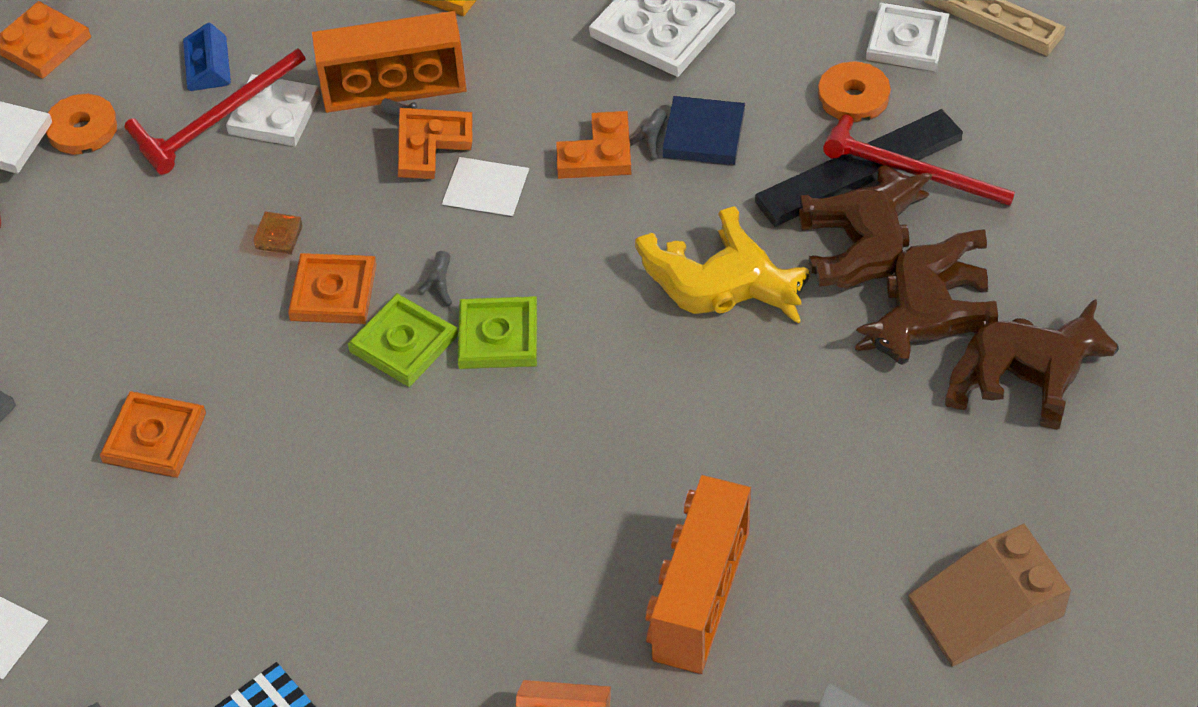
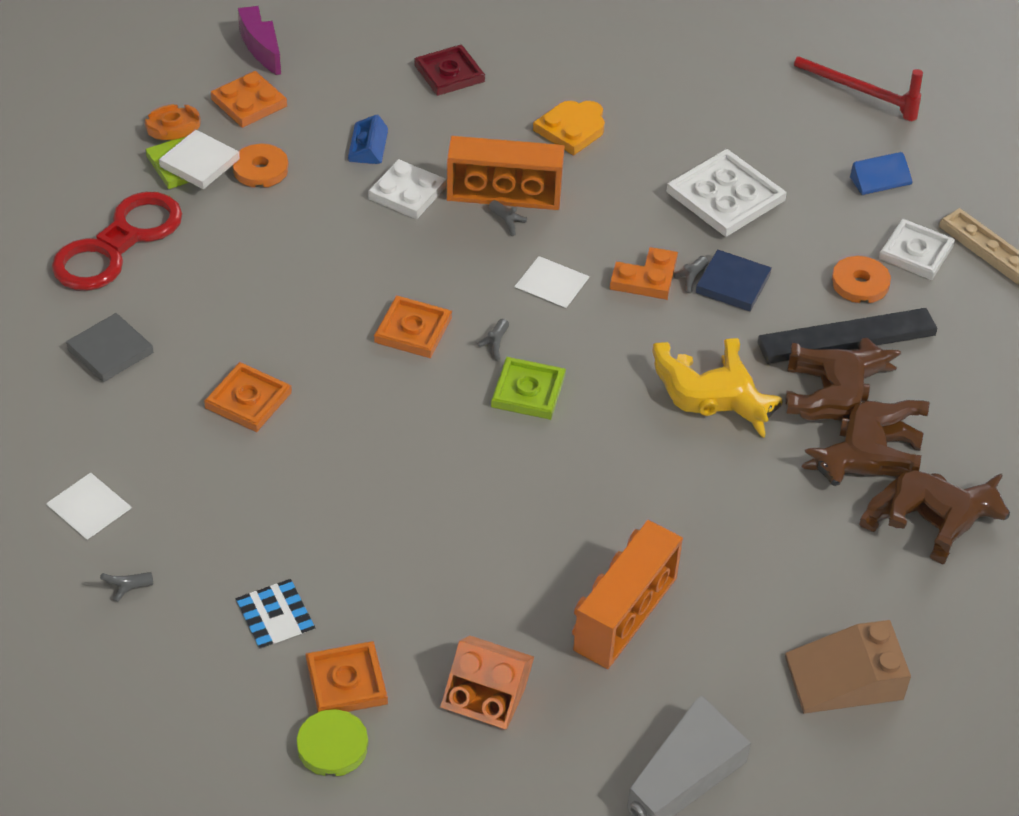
camera: 10 degrees right, 5 degrees down
(161, 152) = (314, 199): red bar -> none
(278, 233) = (383, 276): clear orange plate -> none
(403, 340) = (455, 375): lime tile -> none
(424, 132) = (517, 230): orange plate -> none
(841, 143) = (837, 312): red bar -> none

